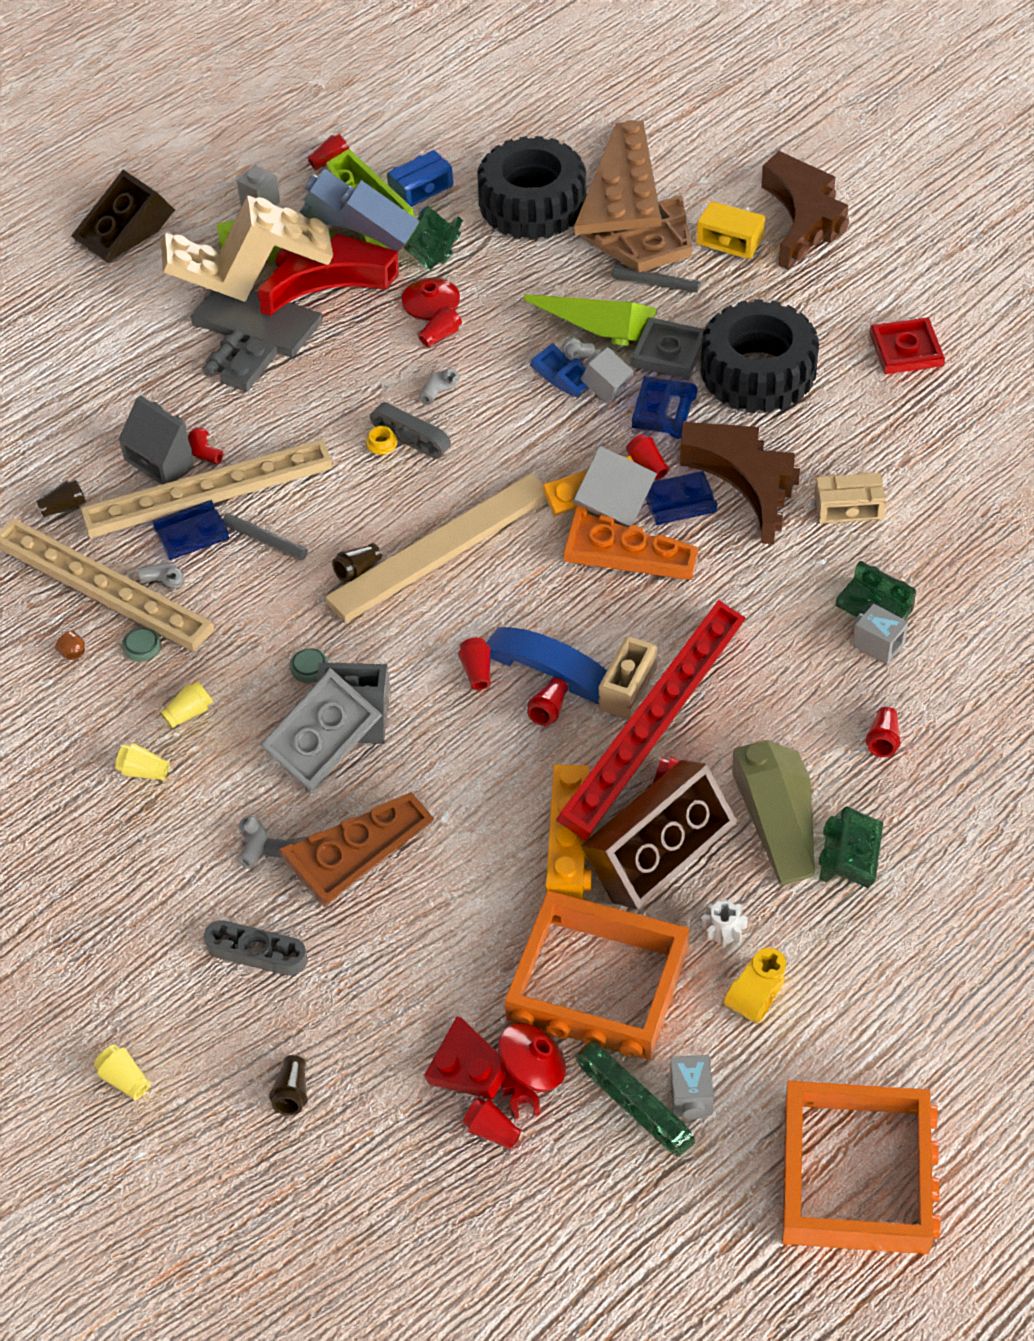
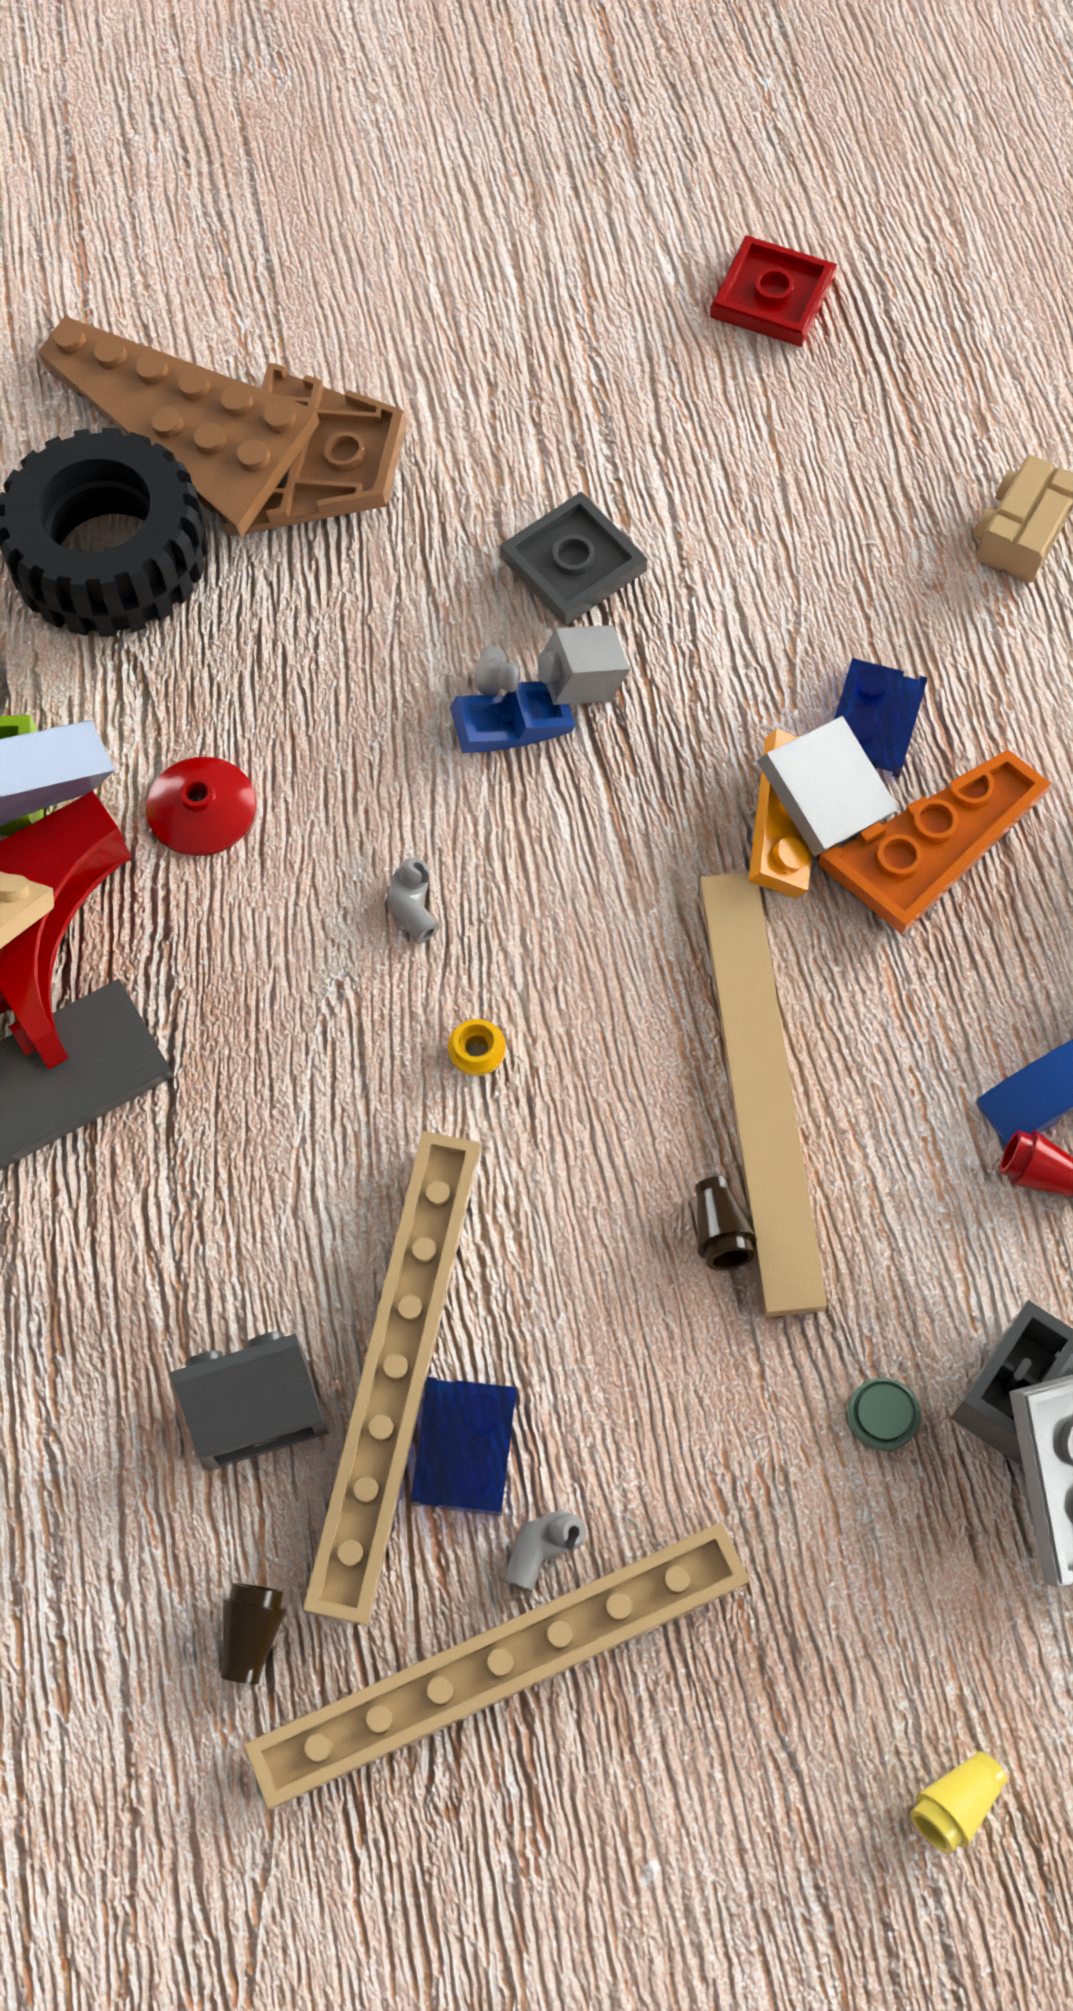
camera: 60 degrees left, 15 degrees up
(70, 645) = (616, 1790): dark orange hinge -> none
(141, 644) = (670, 1663): sand green piece -> none
(187, 704) = (872, 1658): light yellow cone -> none
(199, 444) = (308, 1324): red arm -> none
(248, 360) = (141, 1152): dark grey plate -> none
(265, 536) = (560, 1334): dark grey bar -> none
(411, 430) = (489, 992): dark grey beam -> none
(433, 238) = (92, 699): clear green bracket -> none
(442, 325) = (290, 824): red cone -> none
(604, 318) = (467, 593): lime wedge -> none
(645, 453) = (770, 707): red cone -> none
(654, 403) = (679, 644): clear blue plate -> none
(656, 279) = (409, 494): dark grey bar -> none
(730, 230) = (403, 345): yellow brick -> none
(740, 460) = (918, 597): reddish brown arch -> none
(756, 382) = (695, 406): black tyre -> none
(809, 201) = (400, 224): reddish brown arch -> none

